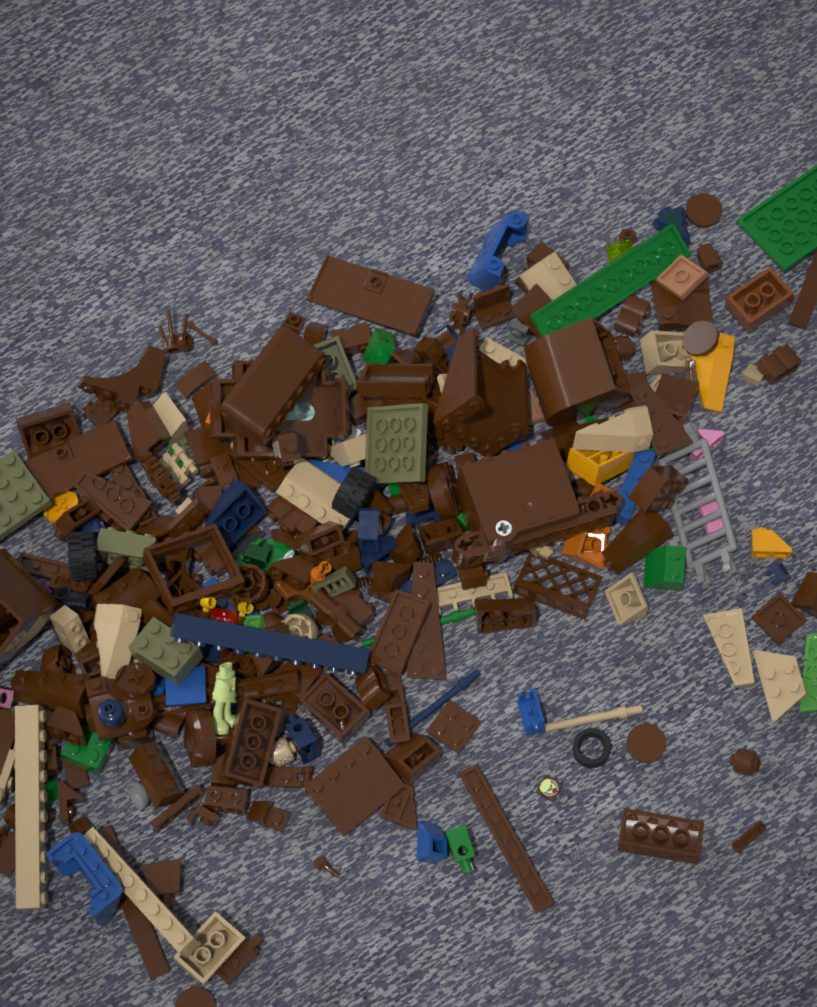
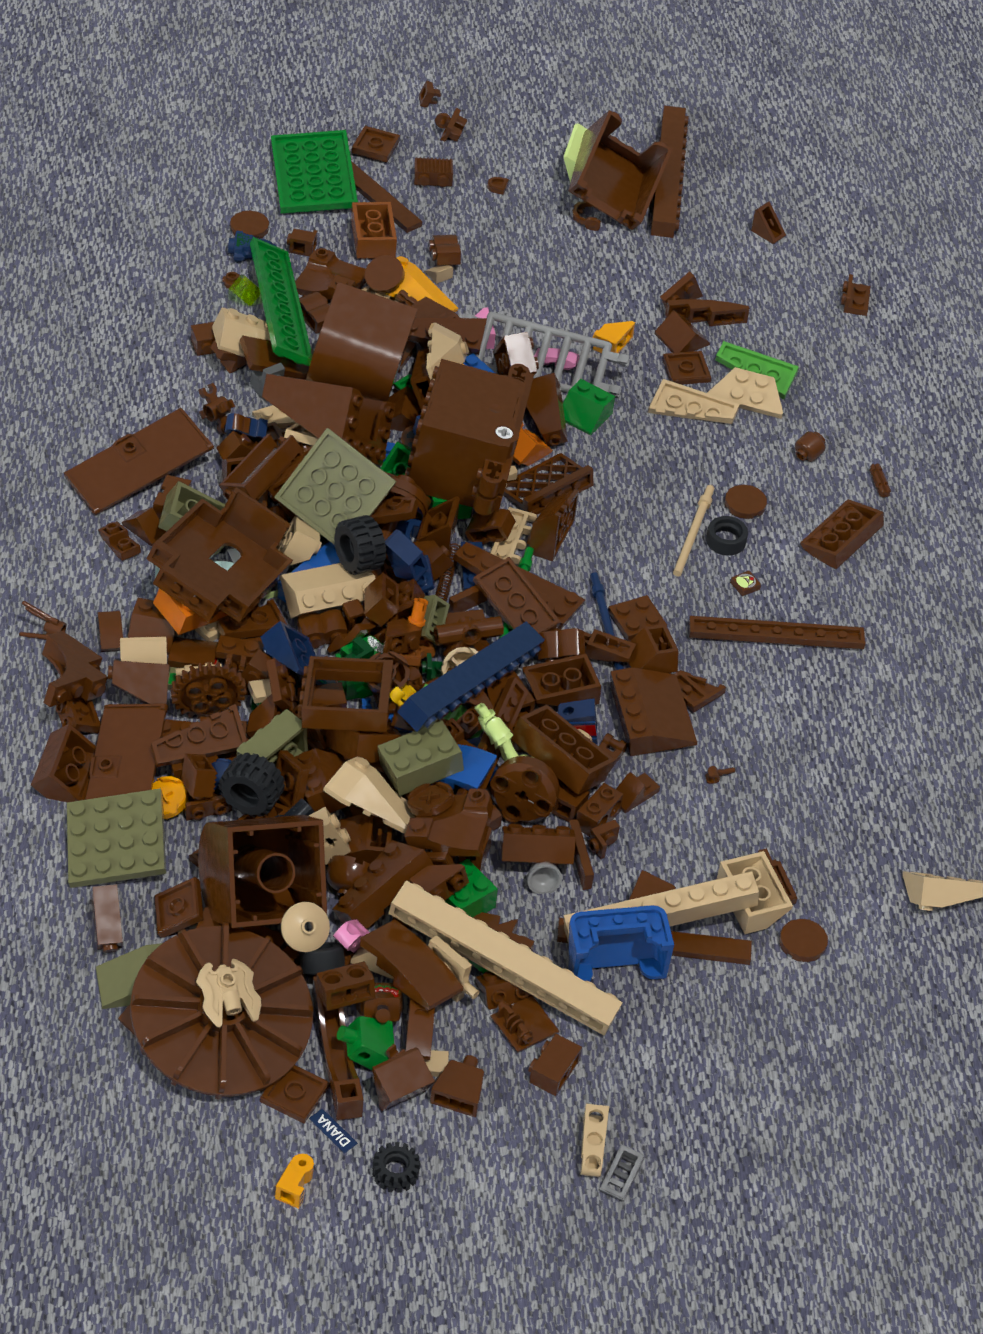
camera: 70 degrees left, 20 degrees down
(80, 825) = (547, 943): reddish brown tile -> none
(111, 713) = (465, 819): dark blue head -> none
(185, 341) = (62, 616): reddish brown tile -> none
(190, 325) = (78, 600): reddish brown hinge -> none
(272, 386) = (207, 533): reddish brown windscreen -> none
(285, 447) = (271, 564): reddish brown torso -> none
(377, 349) = (208, 473): green torso -> none
(388, 575) = (452, 581): reddish brown slope -> none
(431, 843) = (751, 681): blue slope -> none
(459, 839) = (767, 661): green torso -> none
(487, 266) = (174, 363): blue windscreen -> none
(493, 306) = (229, 388): reddish brown bracket -> none
(531, 713) = (665, 554): blue hinge -> none
(627, 600) = (599, 442): tan slope -> none
(681, 277) = (310, 260): nougat tile -> none
(780, 572) = (644, 343): dark blue tile -> none

